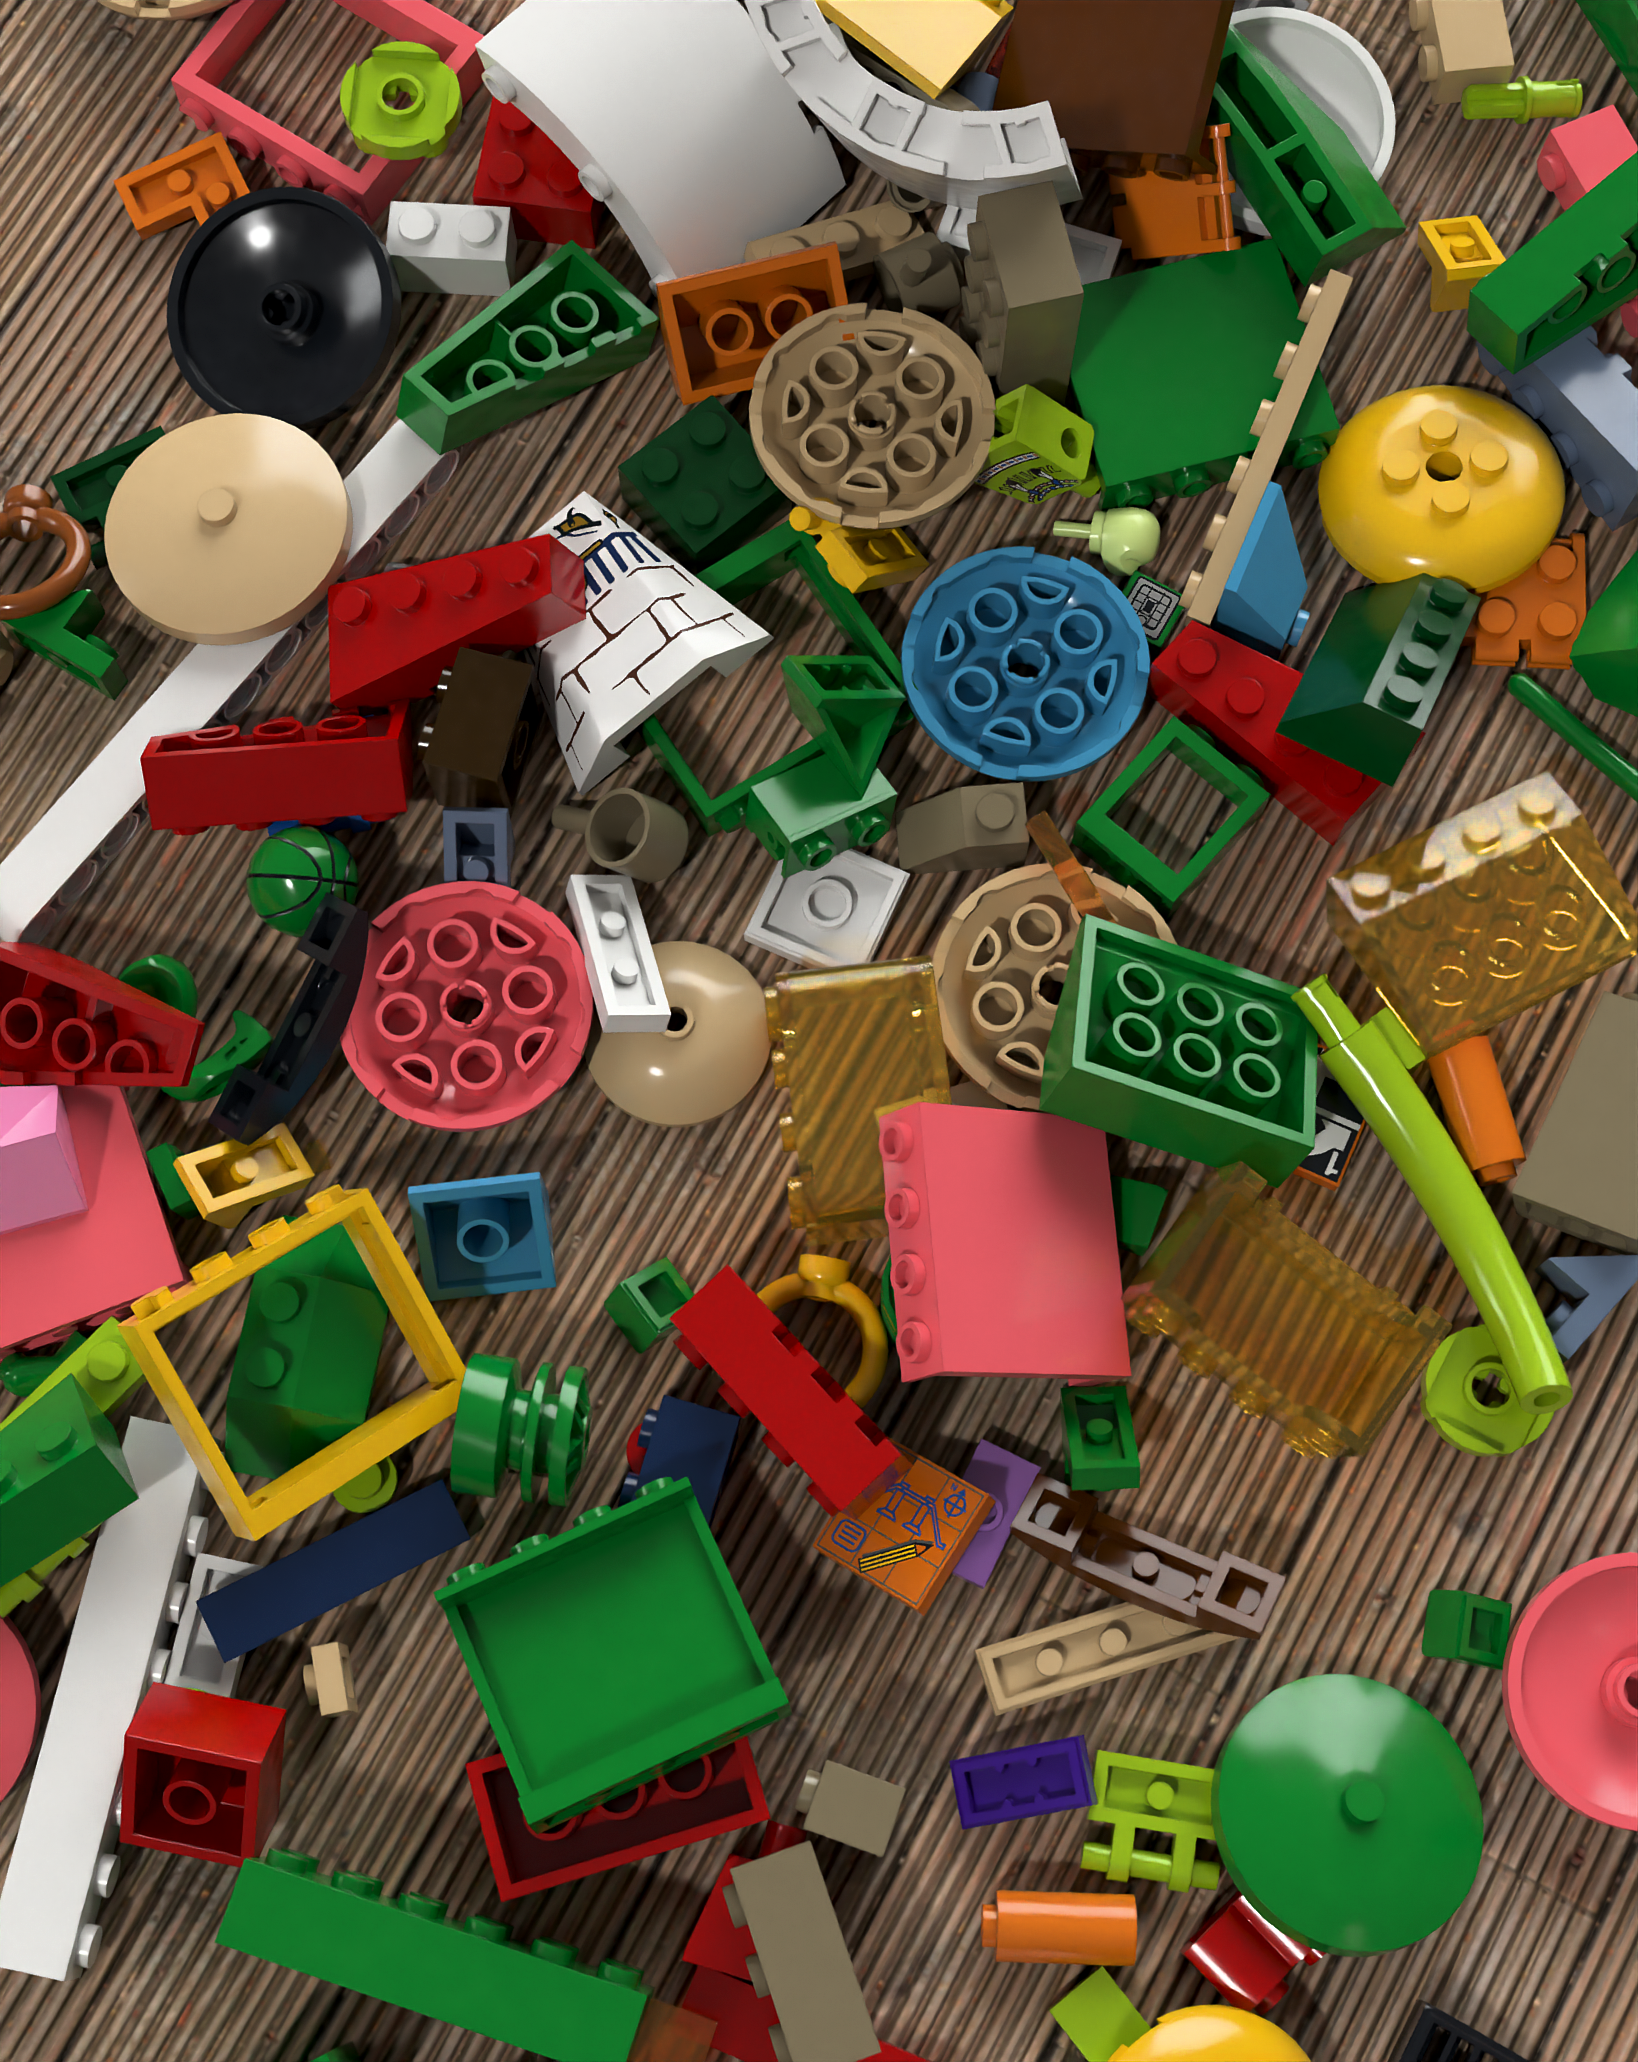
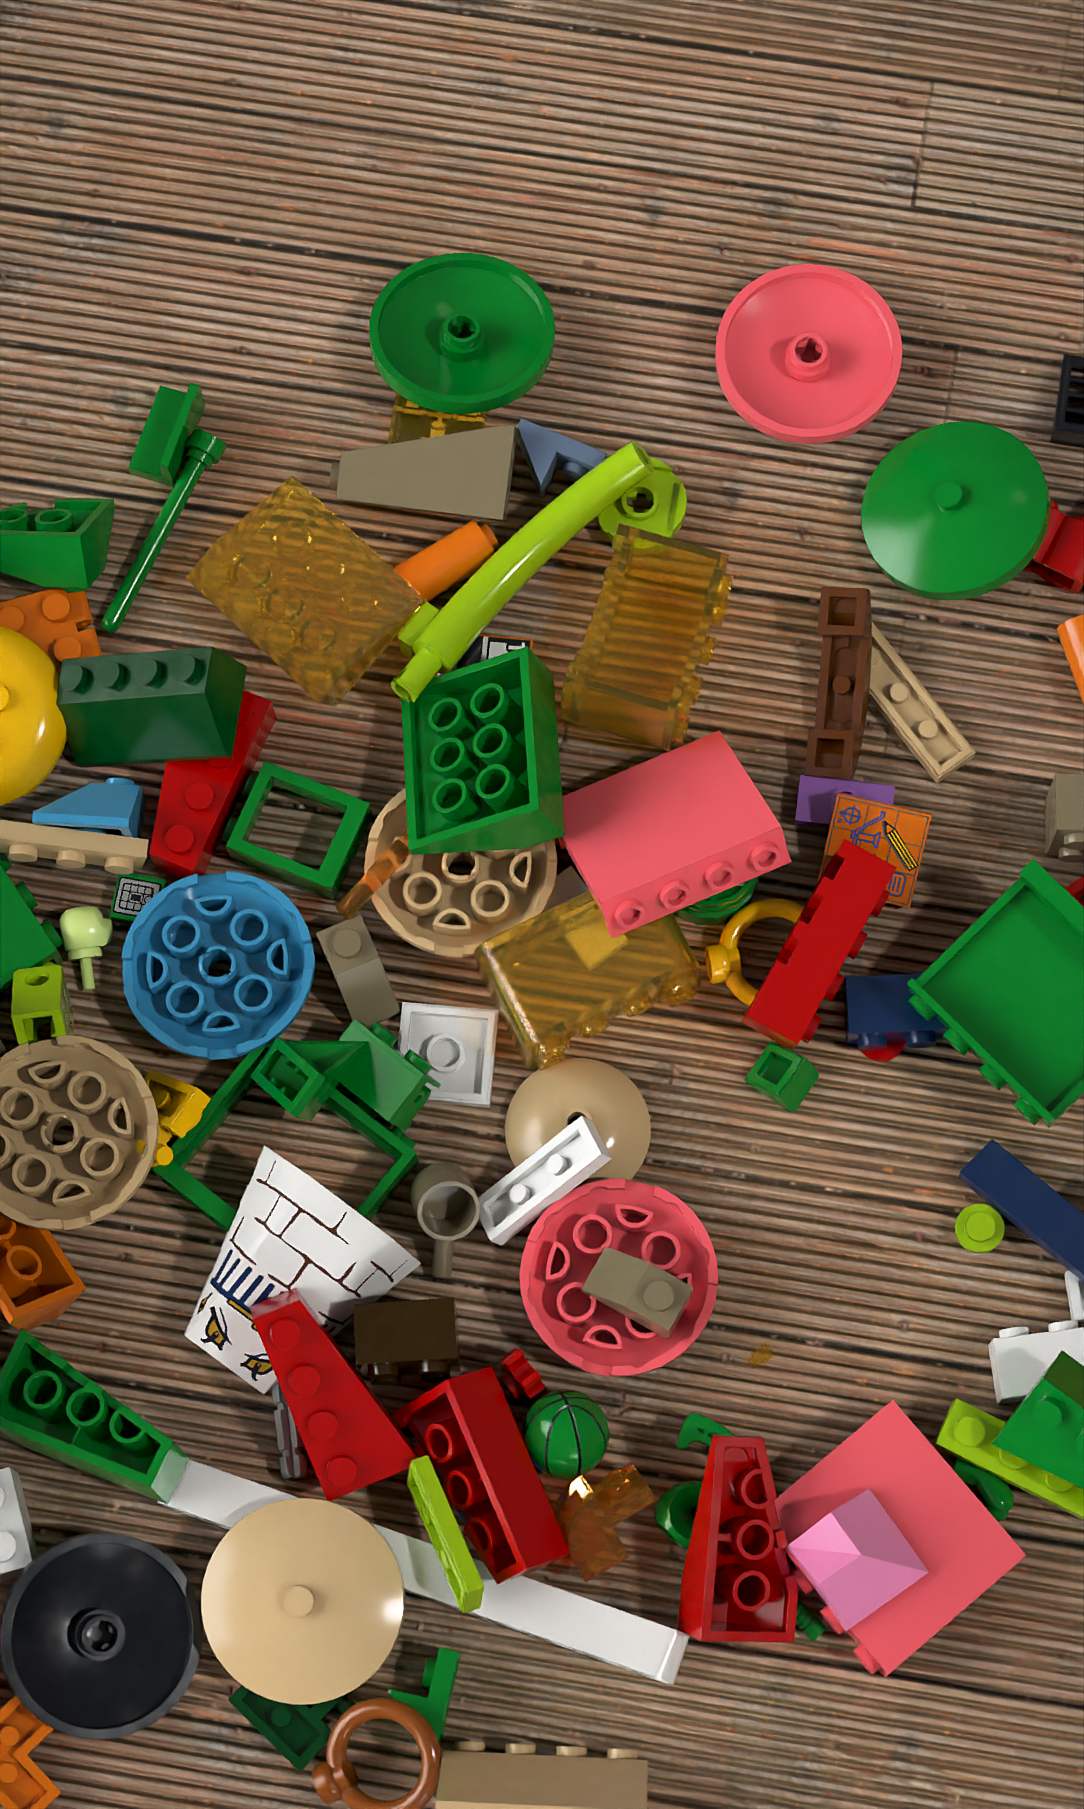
camera: 105 degrees left, 0 degrees up
(175, 1192) = (819, 1442): green tile -> none
(190, 883) = (590, 1514): none -> clear orange brick
(232, 696) = (445, 1535): none -> lime tile
(235, 1177) = (796, 1391): yellow slope -> none
(304, 1356) = (902, 1302): green wedge -> none
(310, 1030) = (680, 1383): black slope -> none
(357, 1450) = (957, 1224): yellow window -> none
(393, 858) = (521, 1377): none -> red plate
(426, 1011) = (639, 1291): none -> dark tan slope
(478, 845) = (497, 1312): sand blue slope -> none
(483, 1236) = (779, 1206): dark azure slope -> none
(520, 1430) = (908, 1112): green wheel -> none
(702, 487) = (147, 1253): dark green brick -> none
(1023, 1782) = (1013, 719): dark purple plate -> none
(1098, 1439) = (772, 738): green slope -> none
(1136, 1212) = (599, 763): green slope -> none
(1157, 1798) = (990, 637): lime plate -> none
(1466, 1628) = (804, 476): green slope -> none

